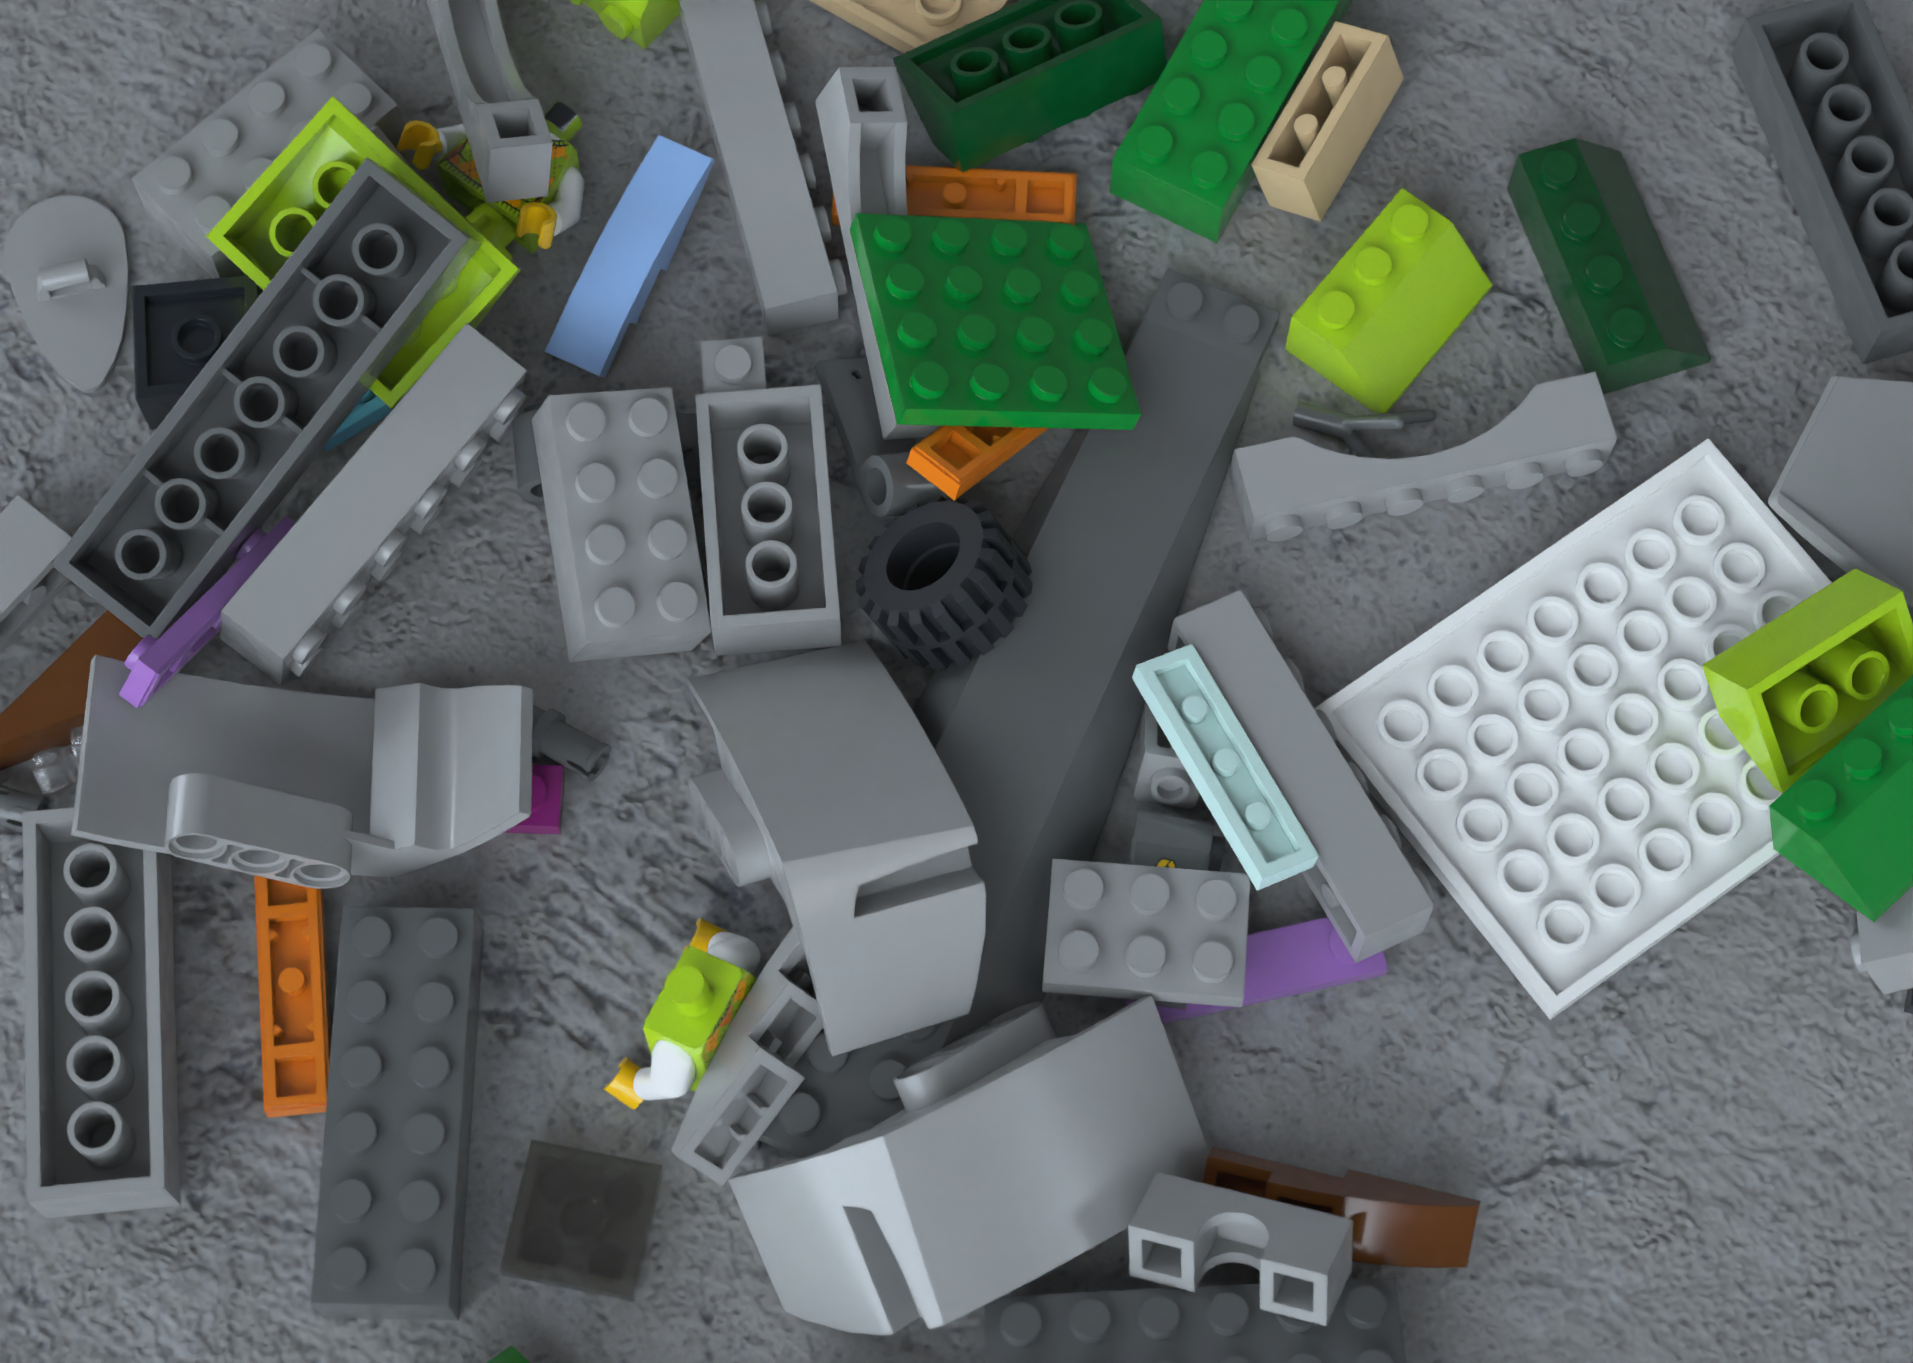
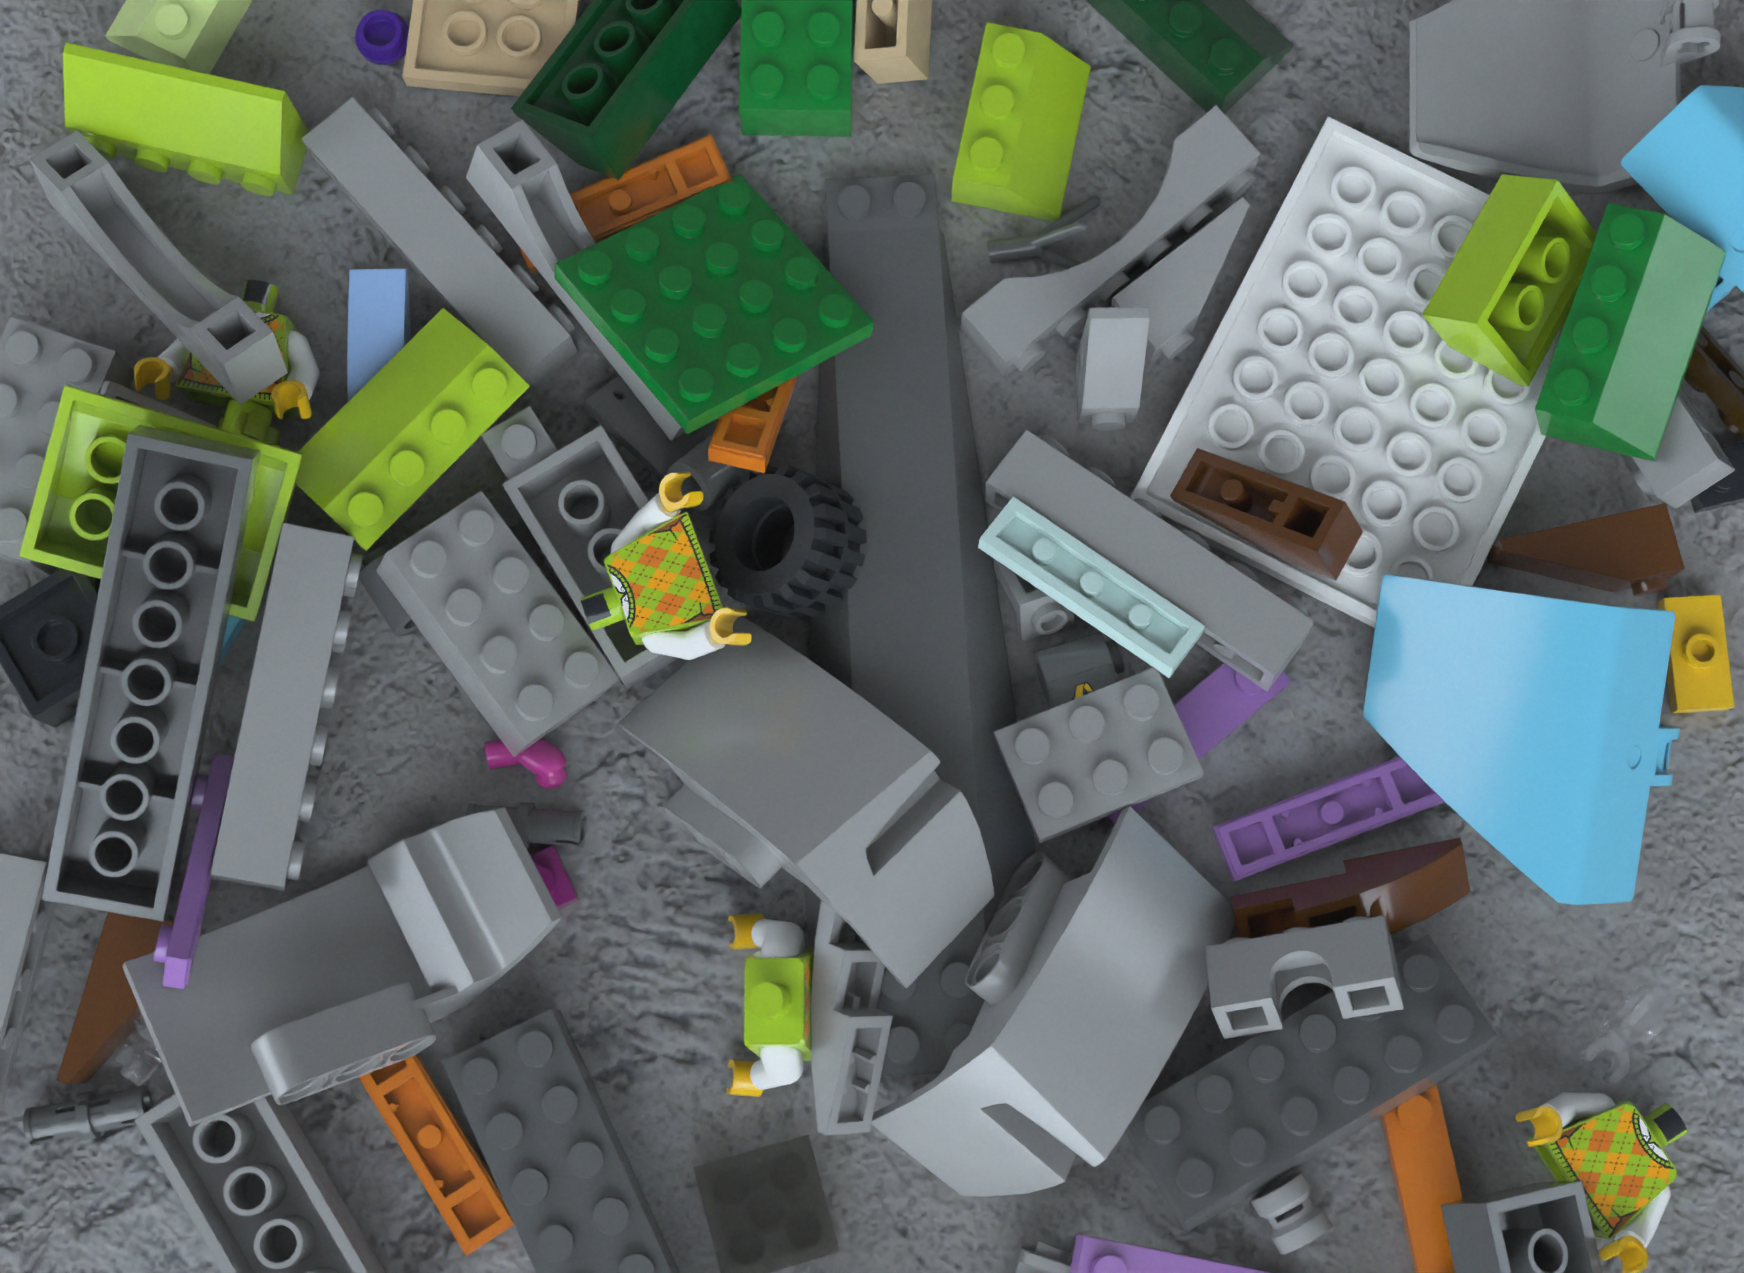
camera: 25 degrees left, 10 degrees up
(593, 676) = (540, 758): none -> dark pink arm
(633, 303) = (406, 427): none -> lime slope
(801, 550) = (664, 582): none -> torso
(1356, 565) = (1111, 366): none -> light grey slope
(1361, 1119) = (1322, 817): none -> medium lavender plate
(1448, 786) = (1270, 512): none -> reddish brown slope
(1460, 535) = (1182, 283): none -> light grey slope
(1615, 1121) = (1529, 722): none -> medium azure panel
(1777, 995) = (1602, 553): none -> reddish brown slope
(1831, 1150) = (1698, 655): none -> yellow plate

